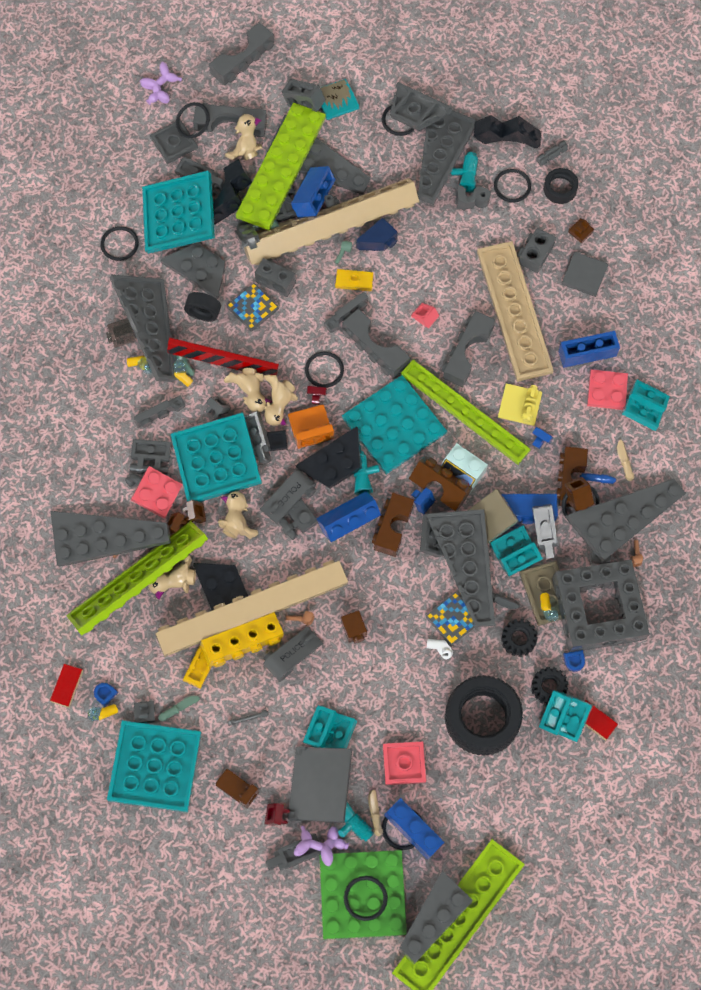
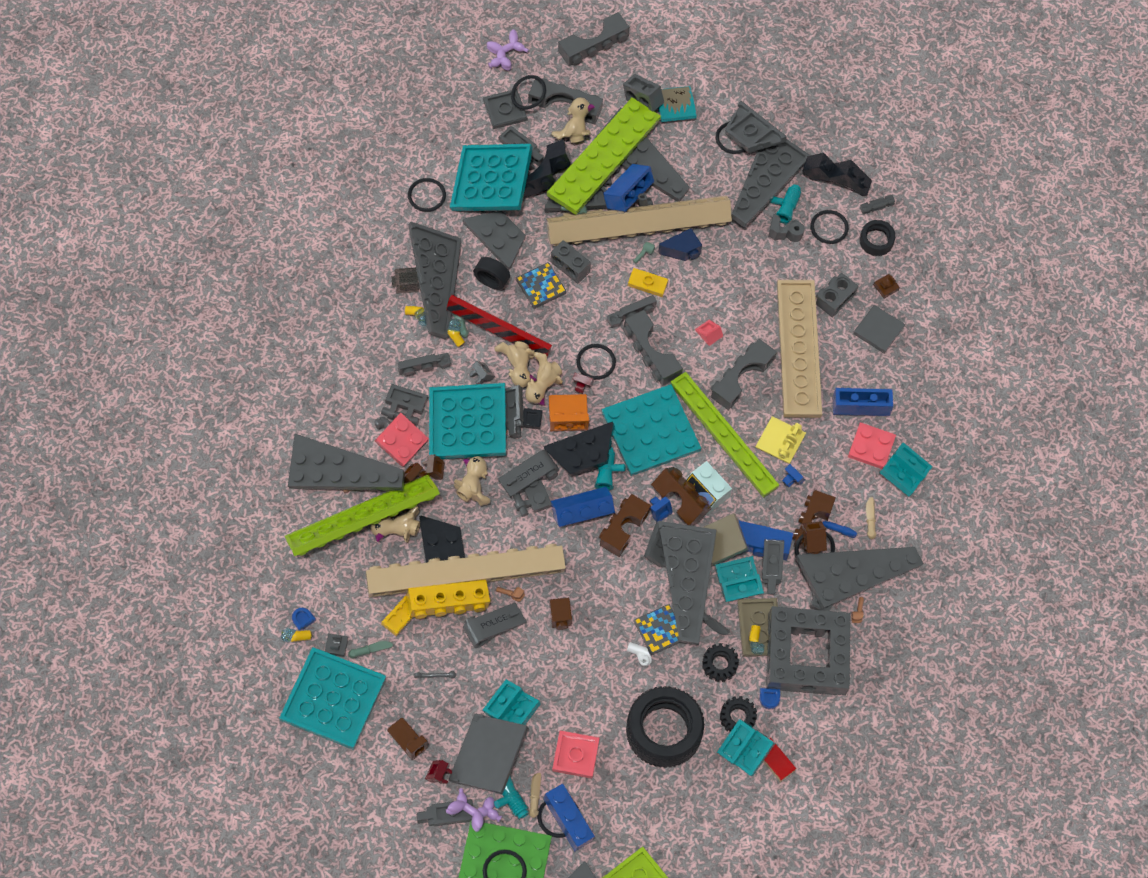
camera: 10 degrees right, 5 degrees down
(66, 685) = (267, 602): red tile -> none
(247, 236) = (553, 215): dark grey hinge -> none

